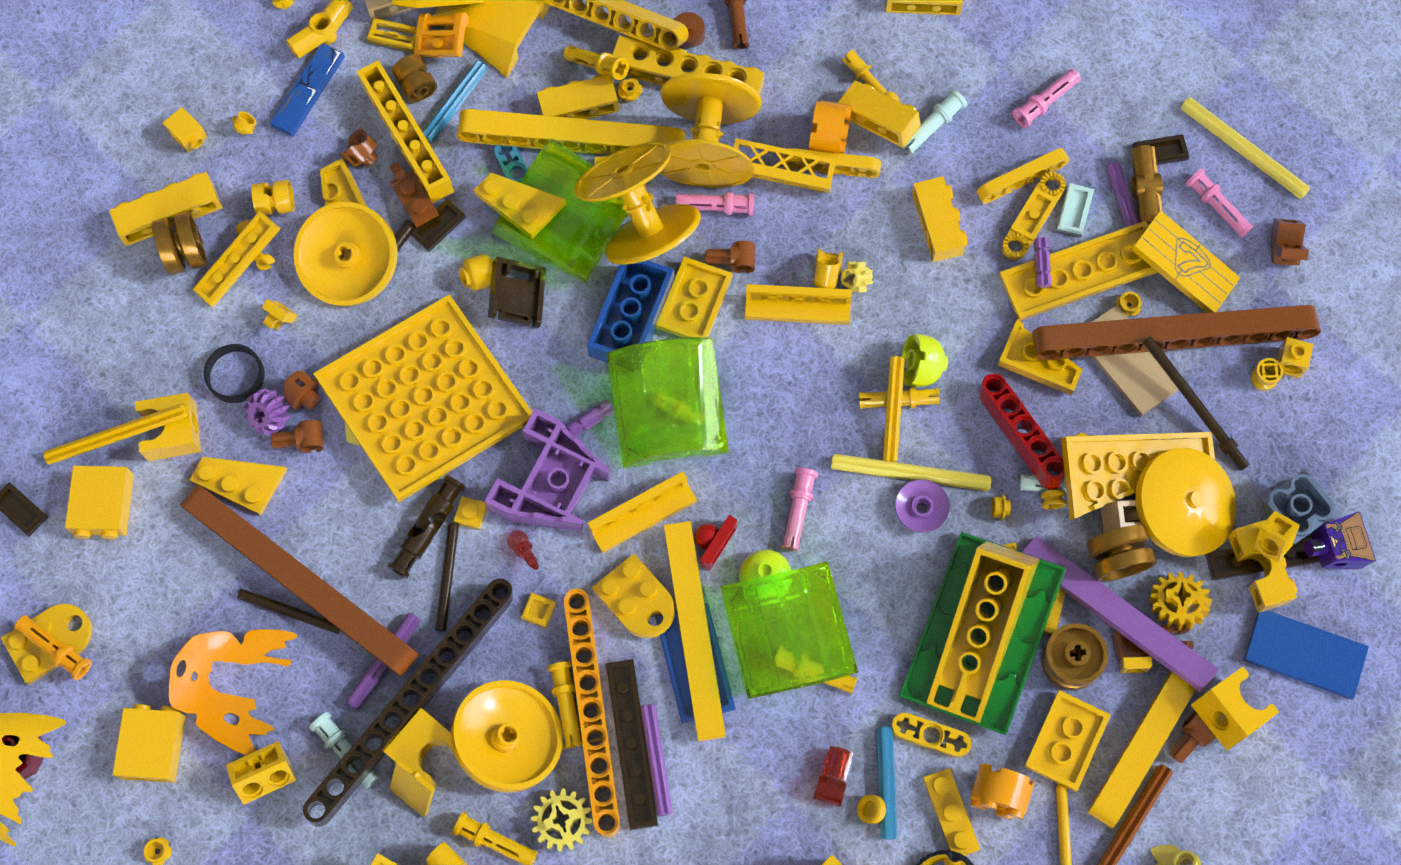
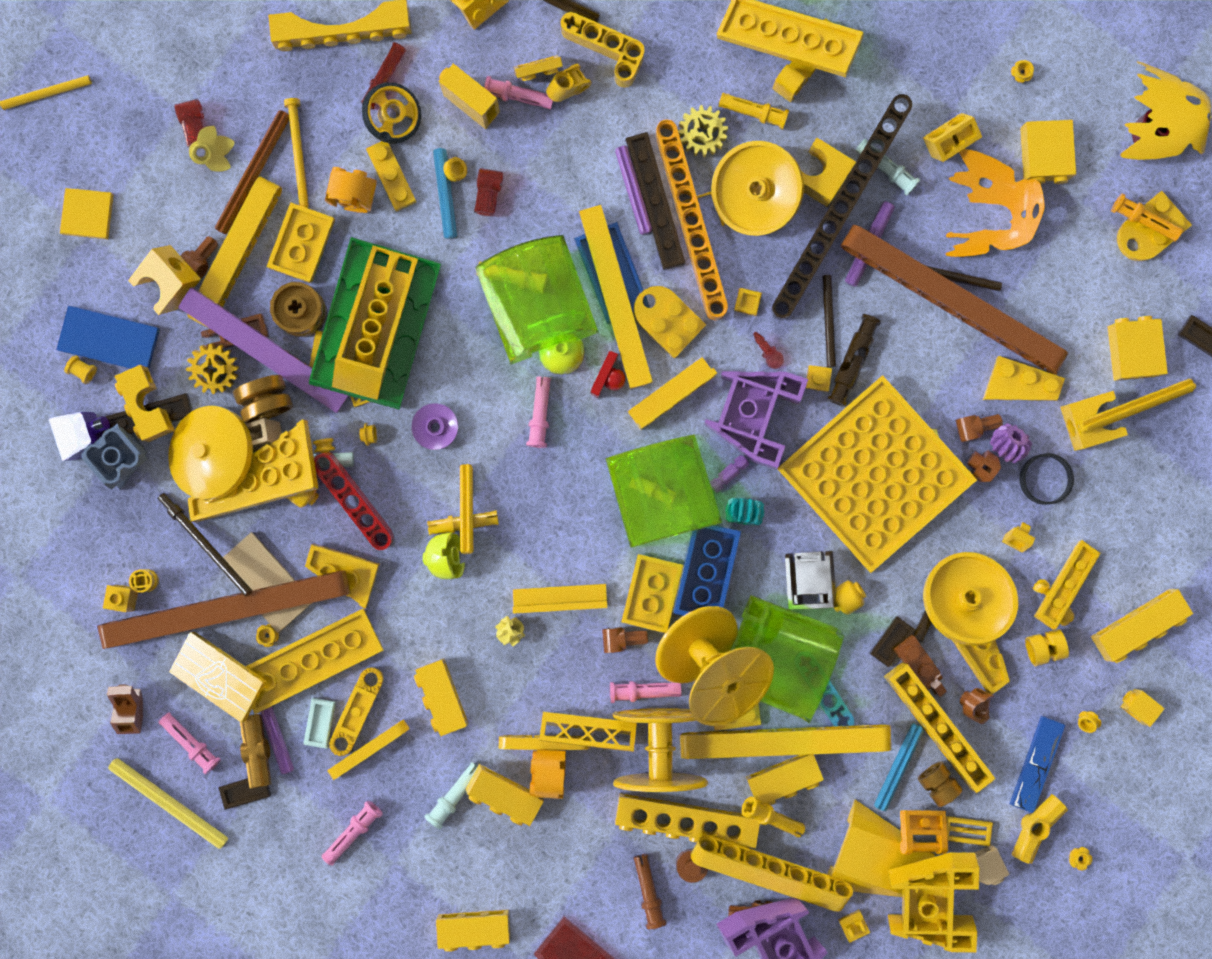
camera: 165 degrees right, 15 degrees up
(179, 243) = (1122, 589): pearl gold wheel -> none
(411, 788) = (827, 138): yellow piece -> none
(519, 203) = (821, 665): yellow wing -> none
(564, 692) = (716, 234): yellow pin -> none
(578, 371) = (744, 511): none -> teal gear
(629, 95) = (734, 792): yellow plate -> none
(827, 269) = (537, 634): yellow piece -> none
(861, 70) = (528, 844): yellow pin -> none
(910, 472) = (447, 457): light yellow axle -> none
(949, 748) = (394, 238): yellow beam -> none
(1042, 262) = (345, 661): medium lavender axle -> none
(1135, 664) = (247, 310): yellow tile -> none
(1276, 536) = (130, 419): yellow brick -> none
(1331, 810) = (86, 213): none -> yellow tile
(1339, 619) = (80, 369): none -> yellow bush

